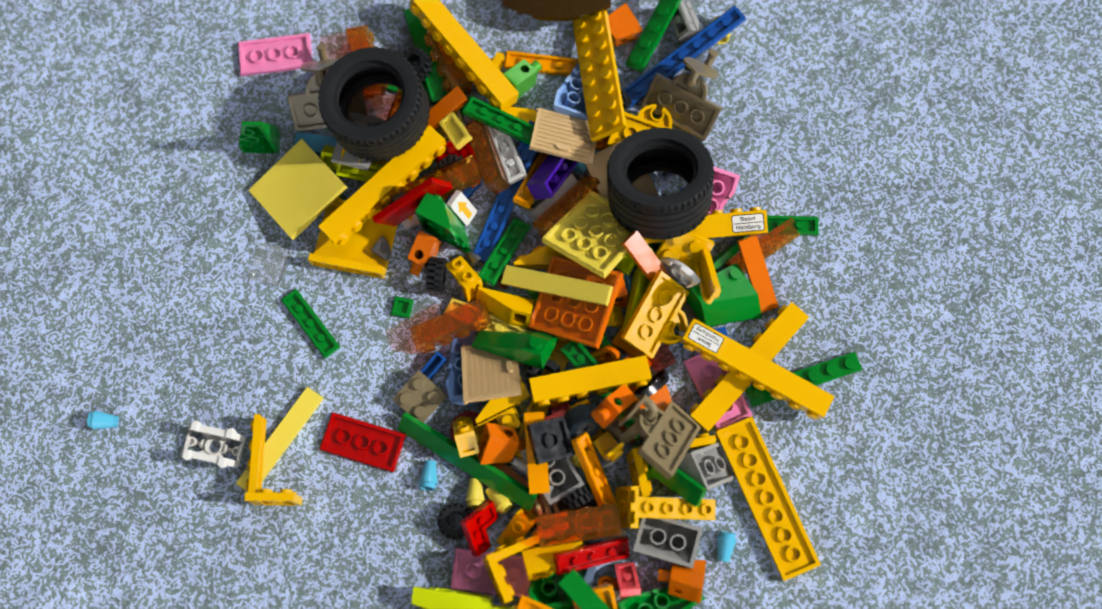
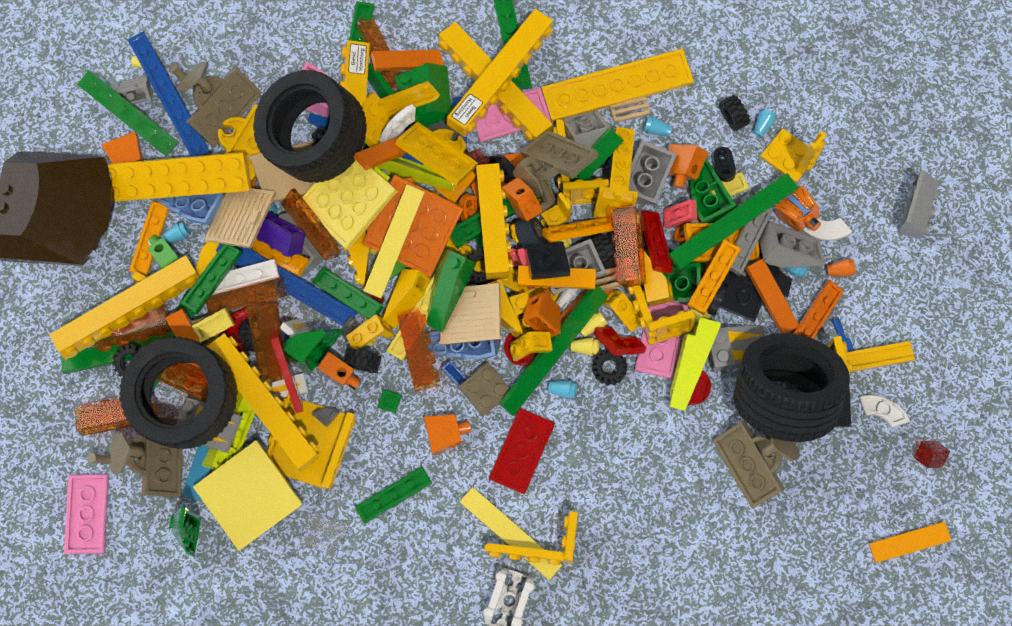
camera: 85 degrees left, 0 degrees up
(373, 363) = (445, 432): none -> orange torso
(547, 85) = (176, 233): none -> medium azure cone
(748, 530) = (631, 116): none -> tan tile

